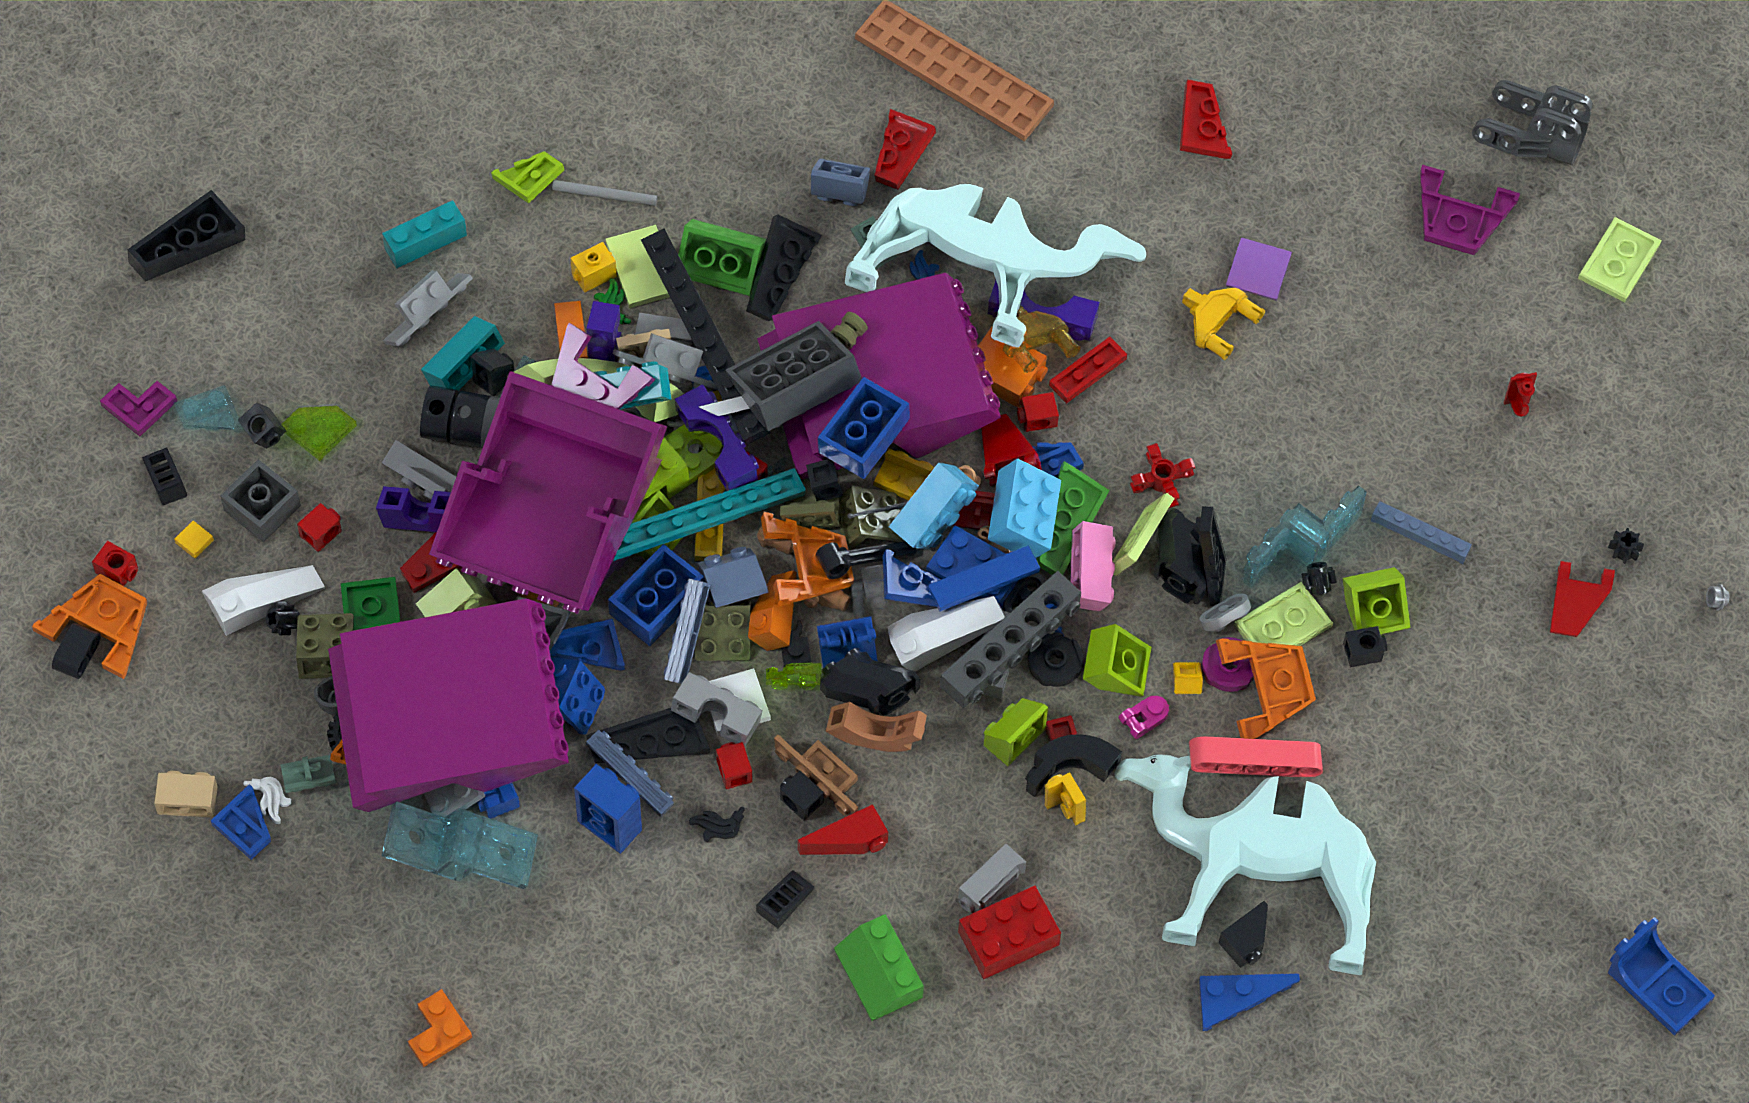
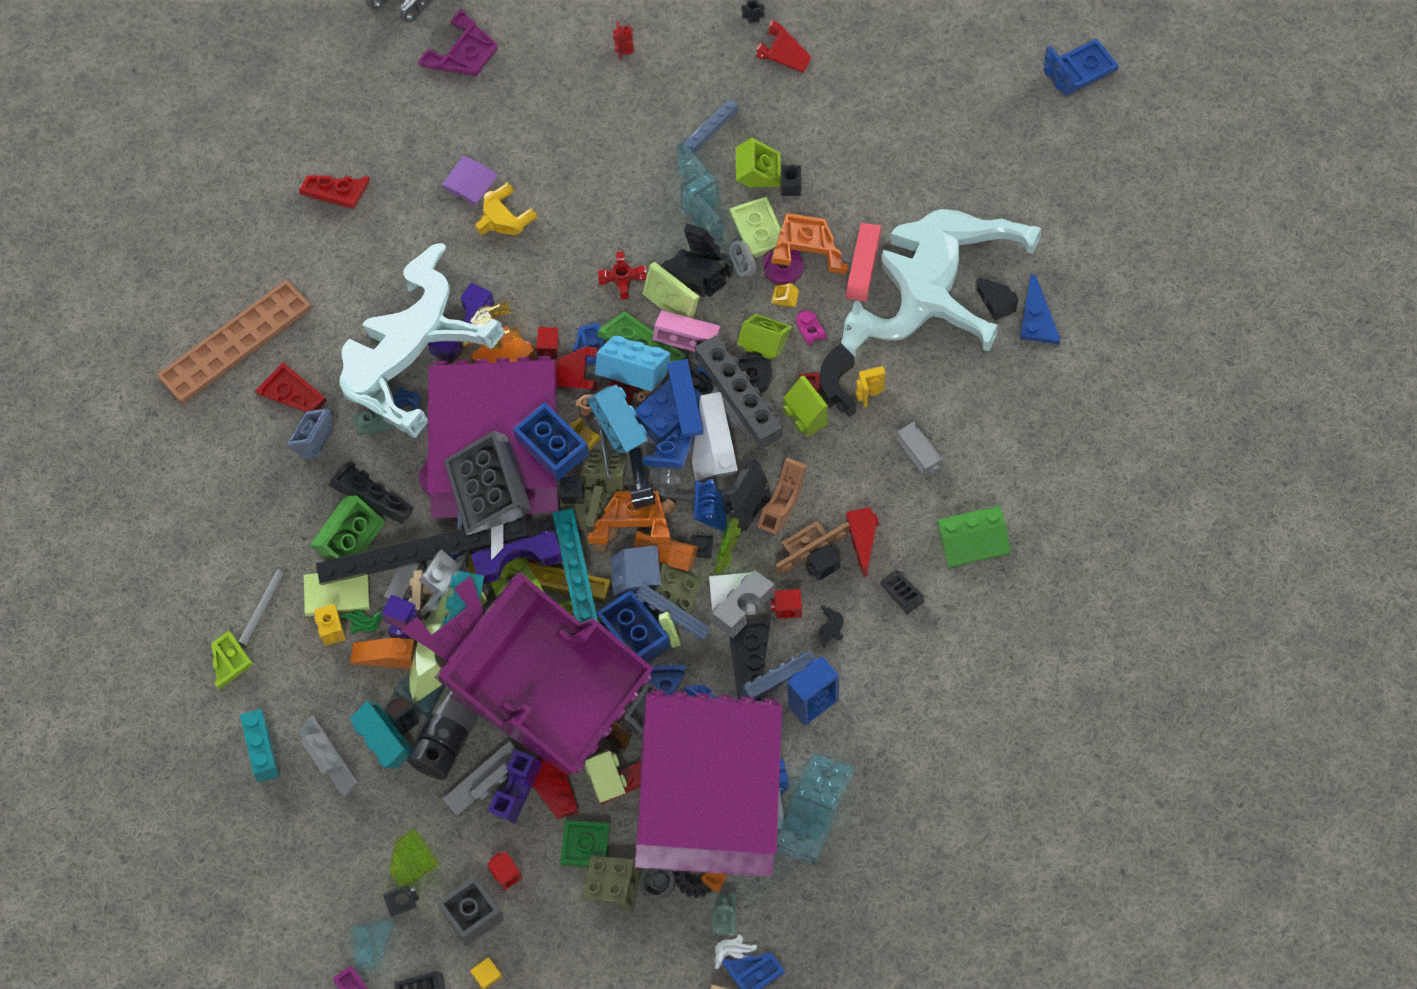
camera: 70 degrees left, 0 degrees up
(187, 237) = (201, 924): black wedge -> none
(248, 598) = (550, 933): white wedge -> none
(282, 618) = (580, 912): black gear -> none
(446, 1029) = (960, 849): orange plate -> none
(663, 634) = (668, 626): none -> yellowish green axle
(849, 329) = (460, 436): olive wheel -> none
(1009, 932) = (964, 446): red brick -> none
(1088, 369) = (520, 305): red plate -> none
(1319, 578) = (731, 195): black gear -> none

